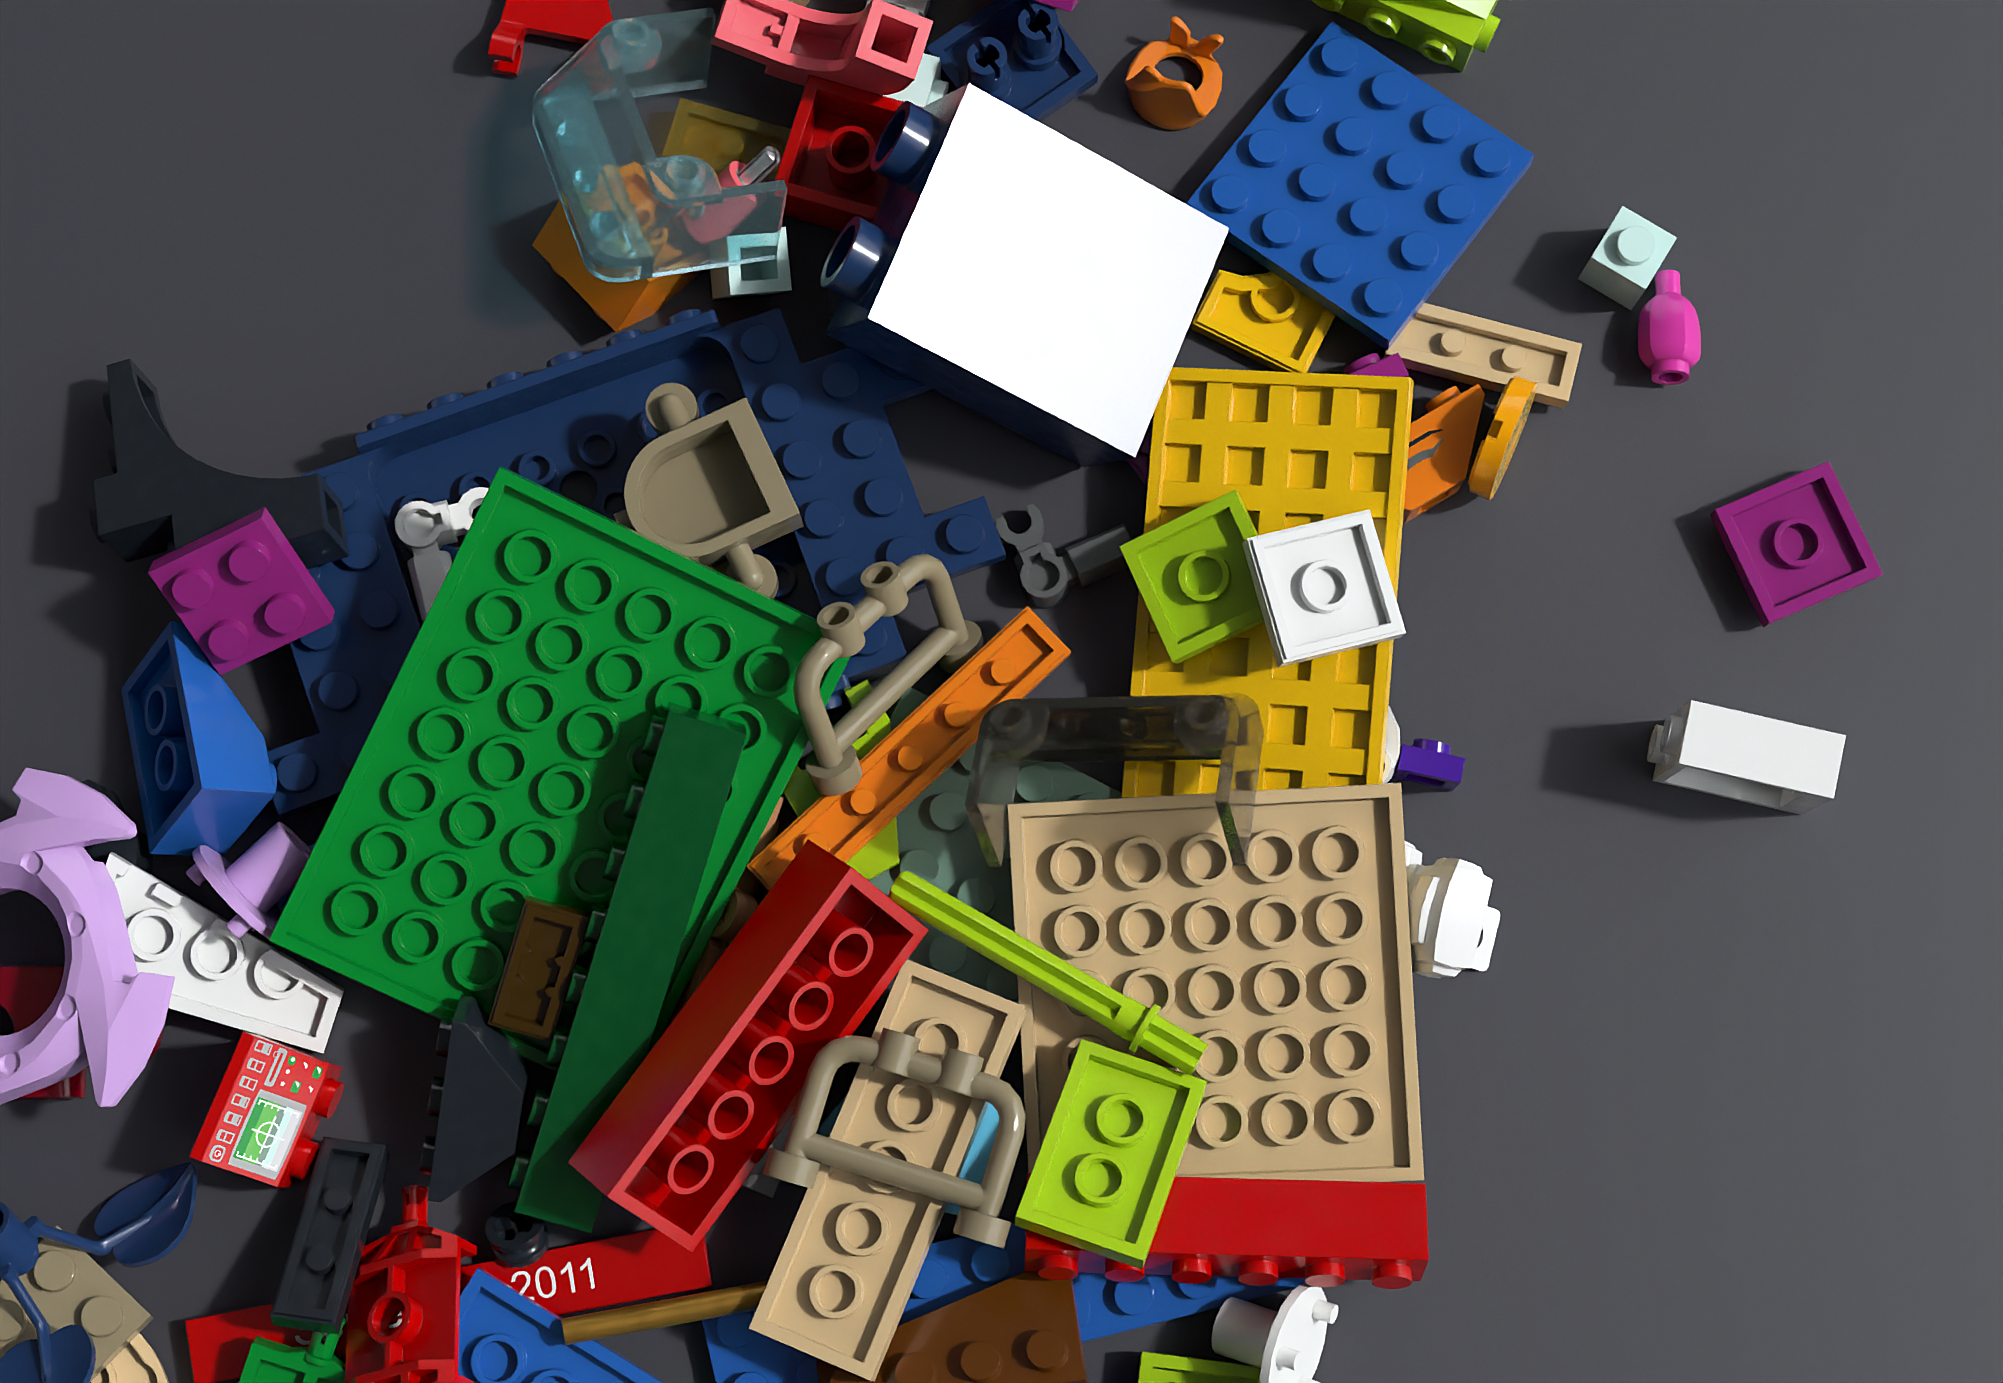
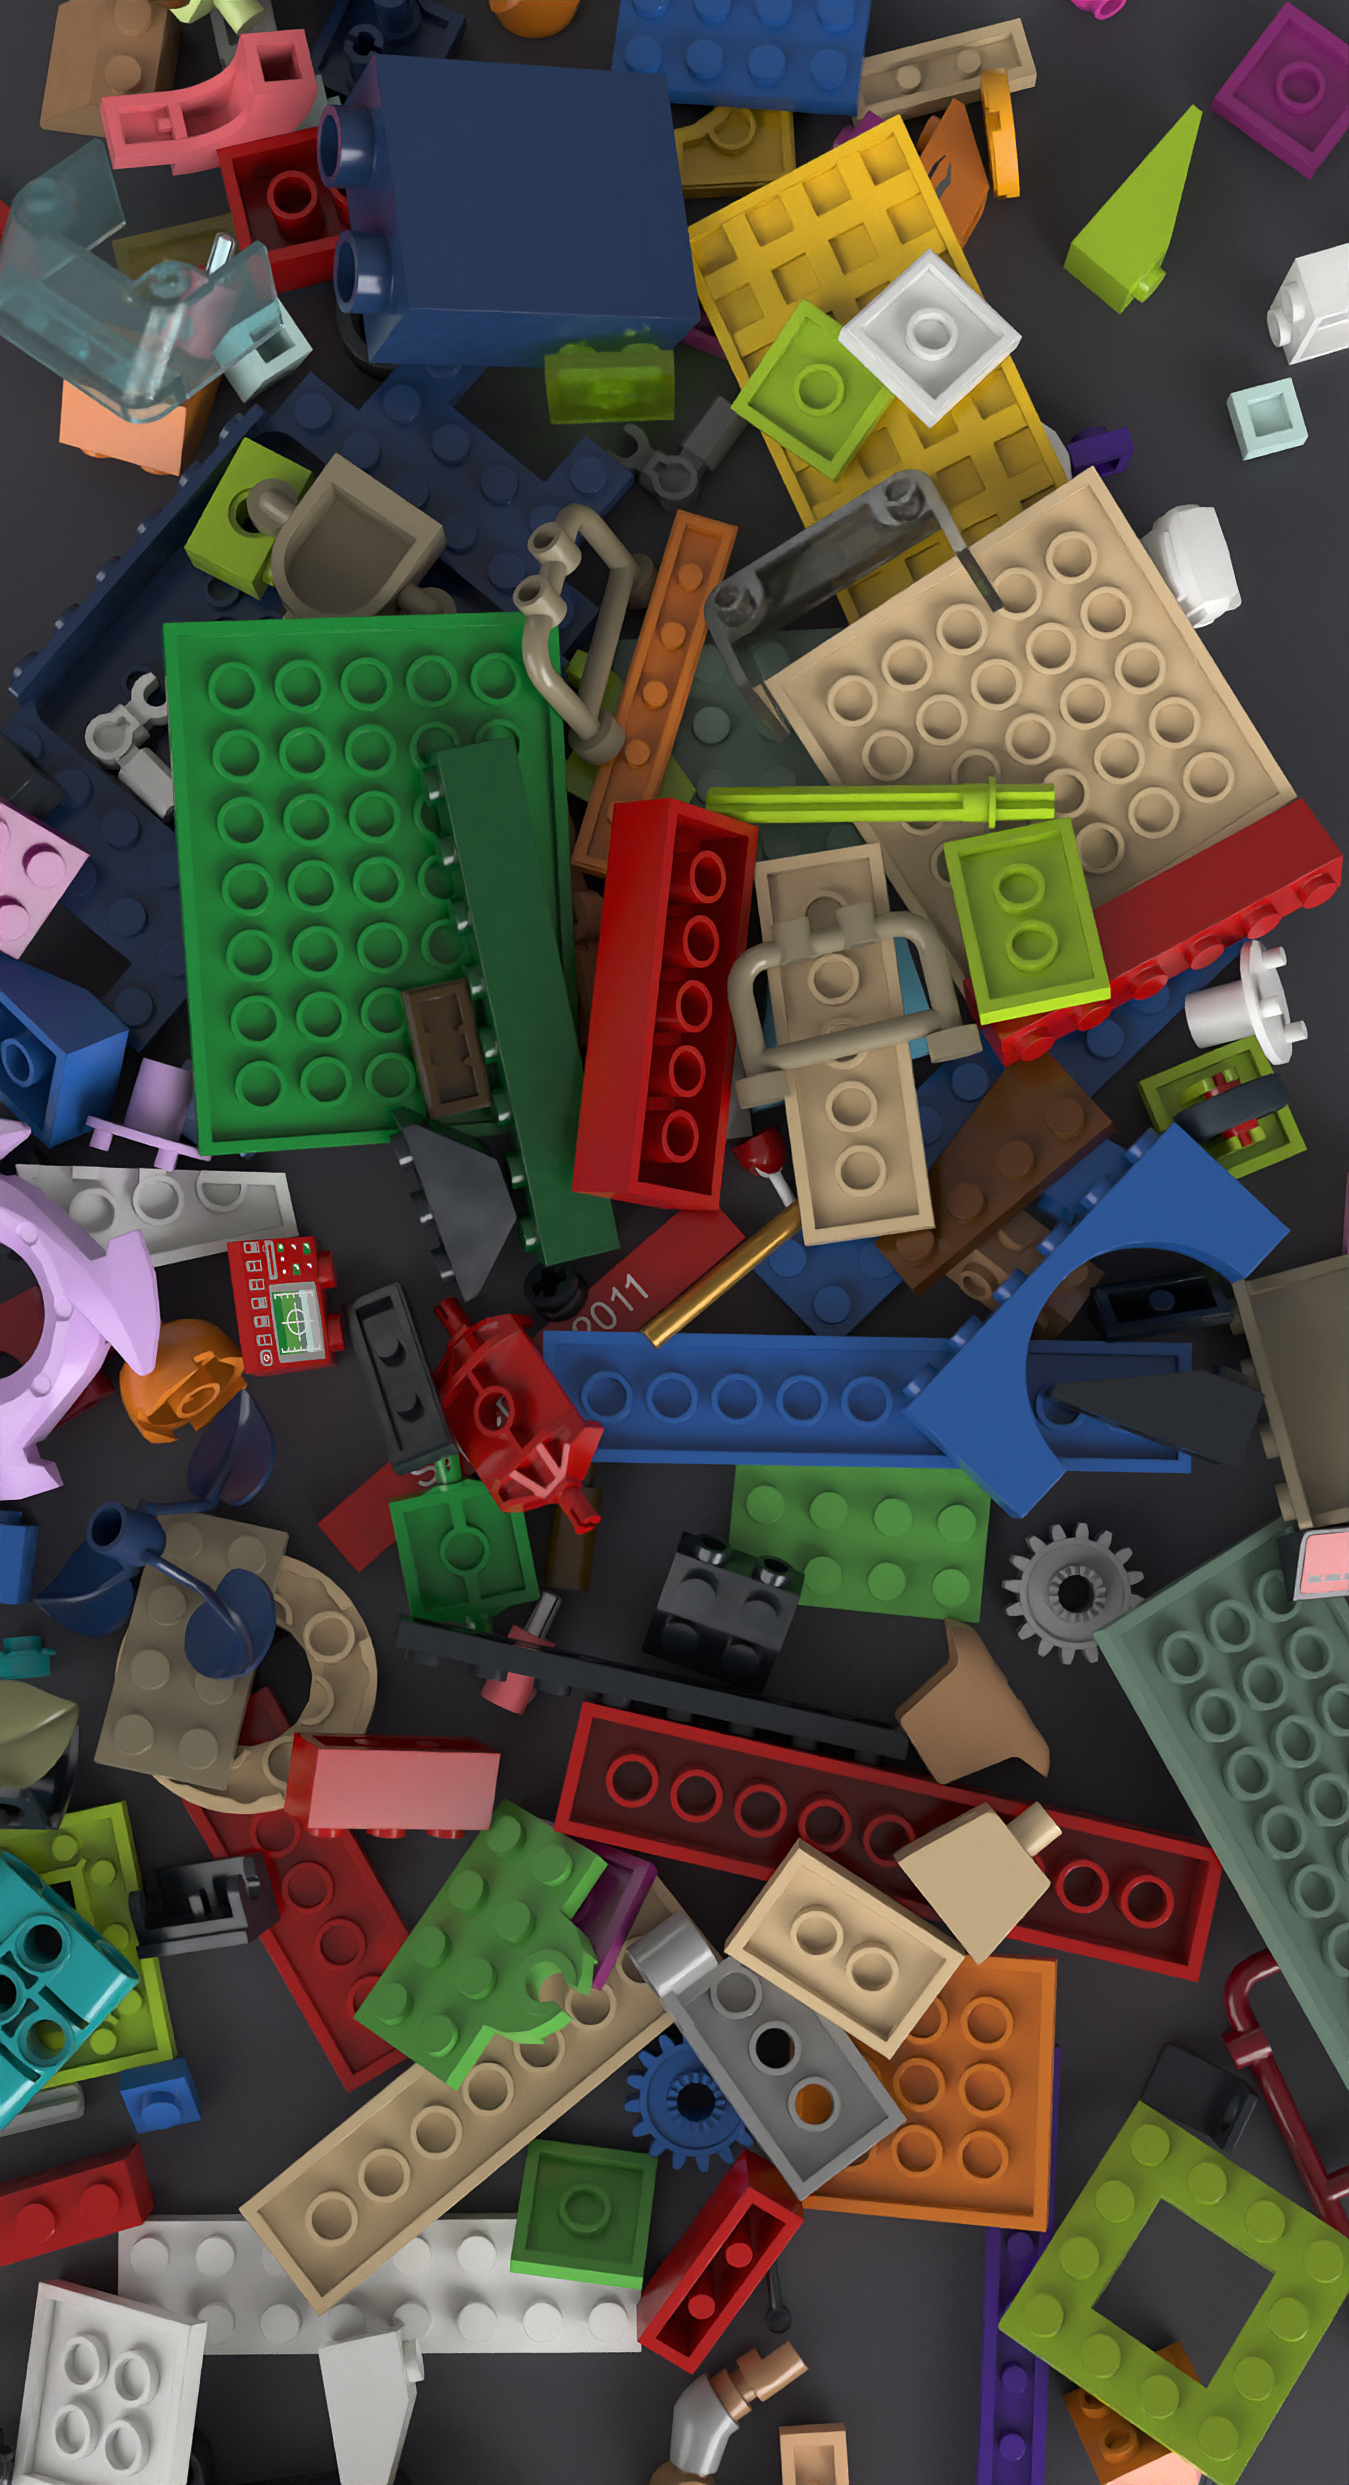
camera: 30 degrees left, 5 degrees up
(149, 1125) = (191, 1382): none -> orange cylinder
(618, 404) = (219, 541): none -> lime brick
(771, 1222) = (765, 1157): none -> red hinge
(1048, 474) = (610, 384): none -> clear neon green plate
(1572, 587) = (1128, 237): none -> lime slope
(1601, 819) = (1267, 418): none -> light aqua plate

